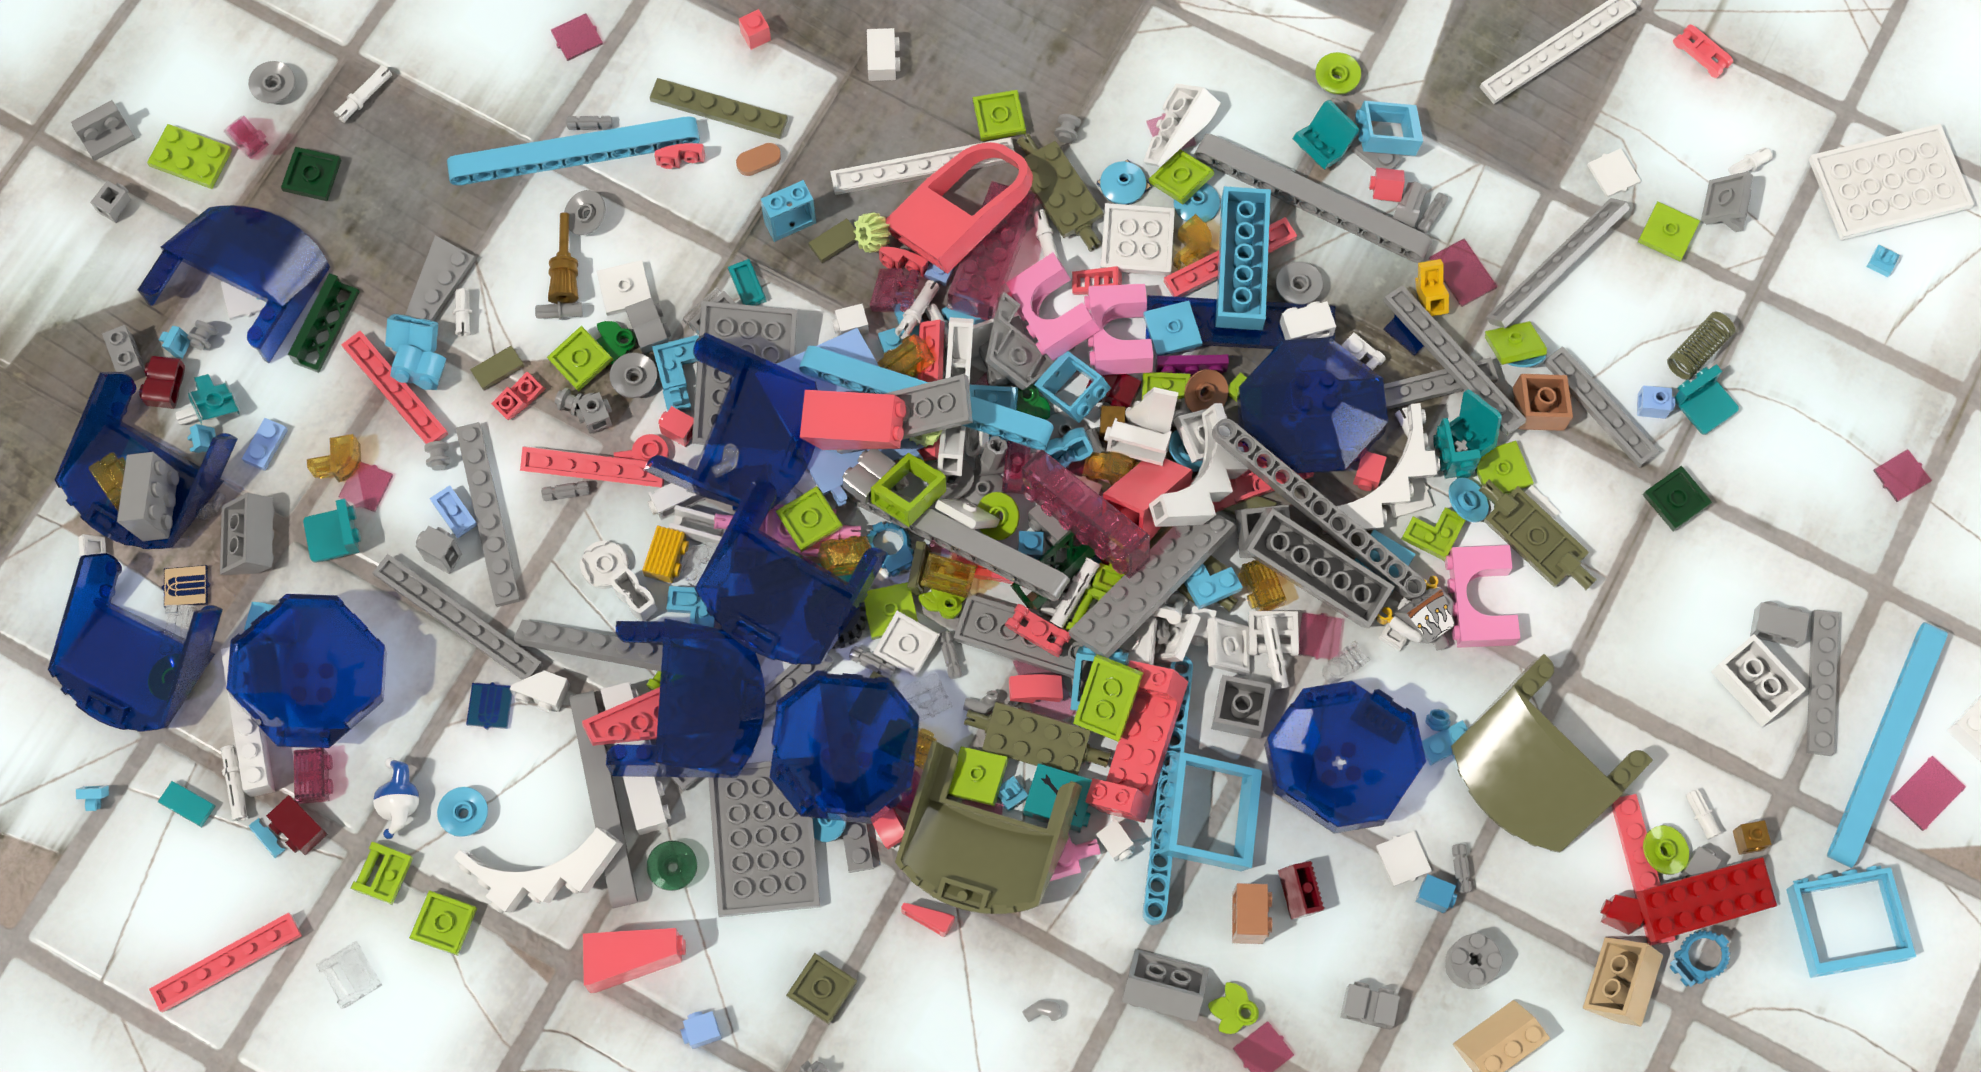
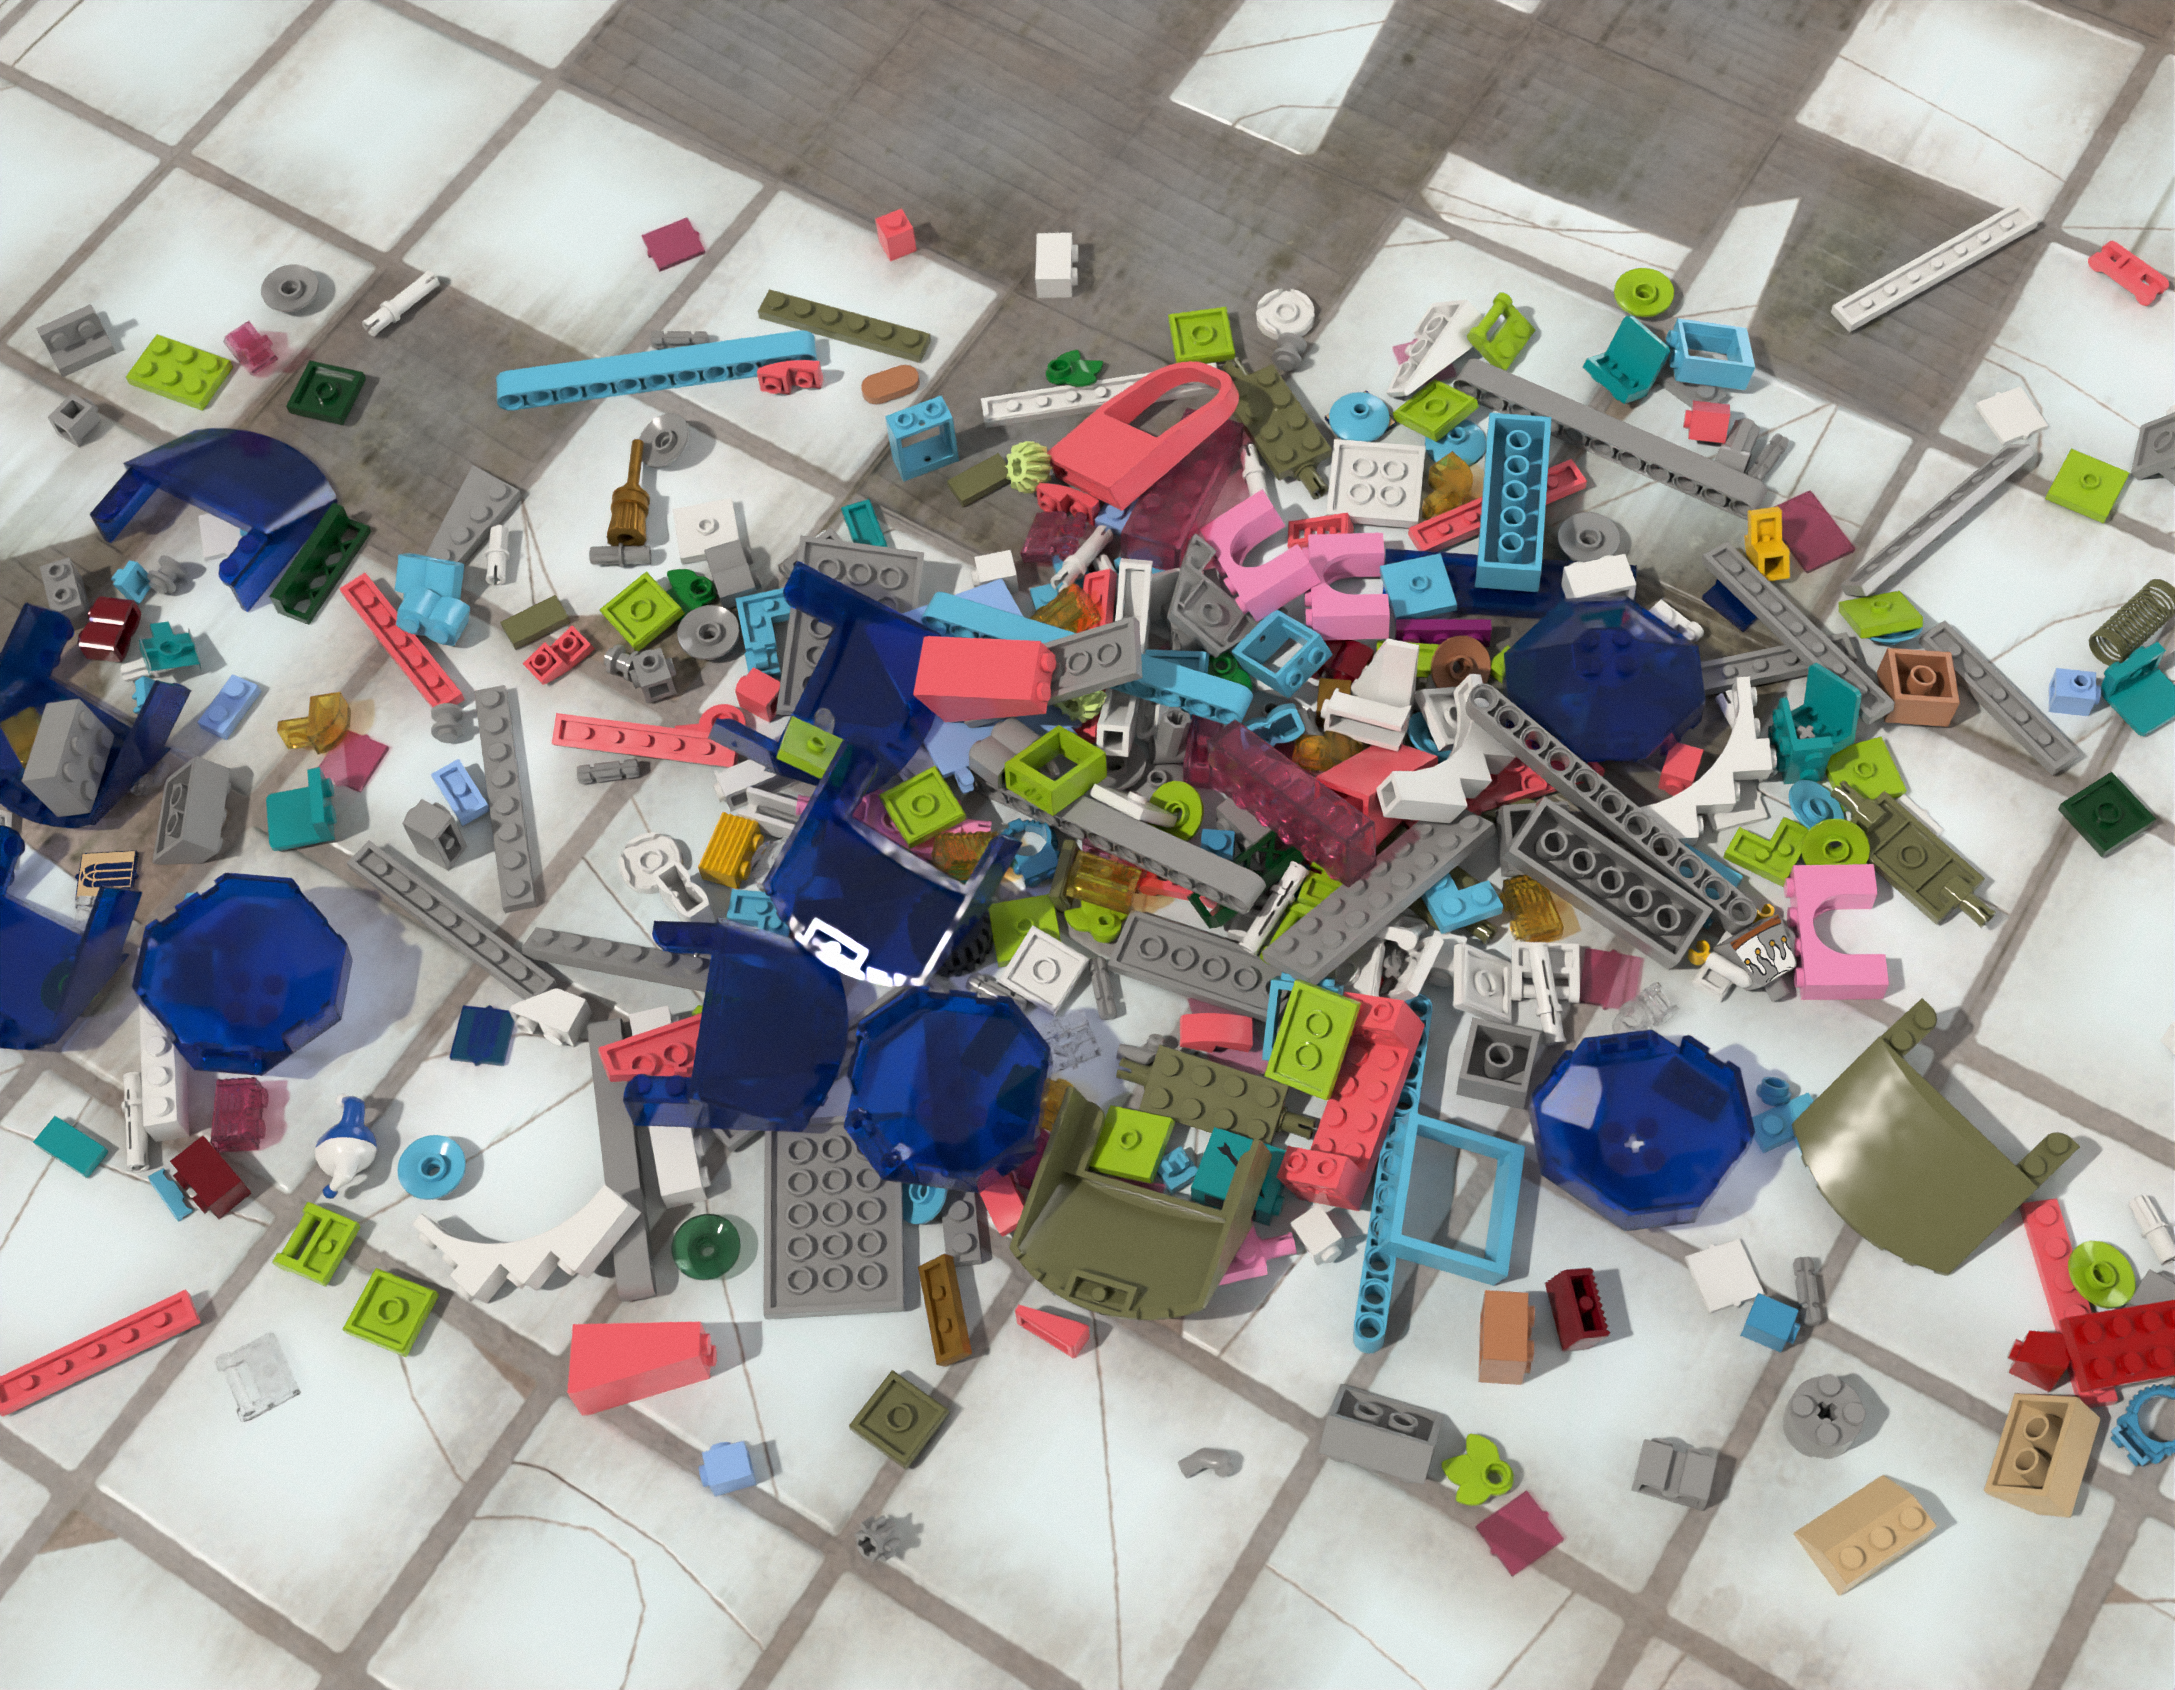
camera: 10 degrees right, 10 degrees down
(724, 479) = (808, 747): none -> lime plate
(849, 906) = (944, 1310): none -> pearl gold plate
(900, 145) = (1072, 370): none -> green plate
(1038, 630) = (1222, 957): coral plate -> none
(1062, 94) = (1284, 312): none -> white tile
(1235, 113) = (1508, 337): none -> lime plate
(1471, 534) = (1852, 851): none -> lime dish

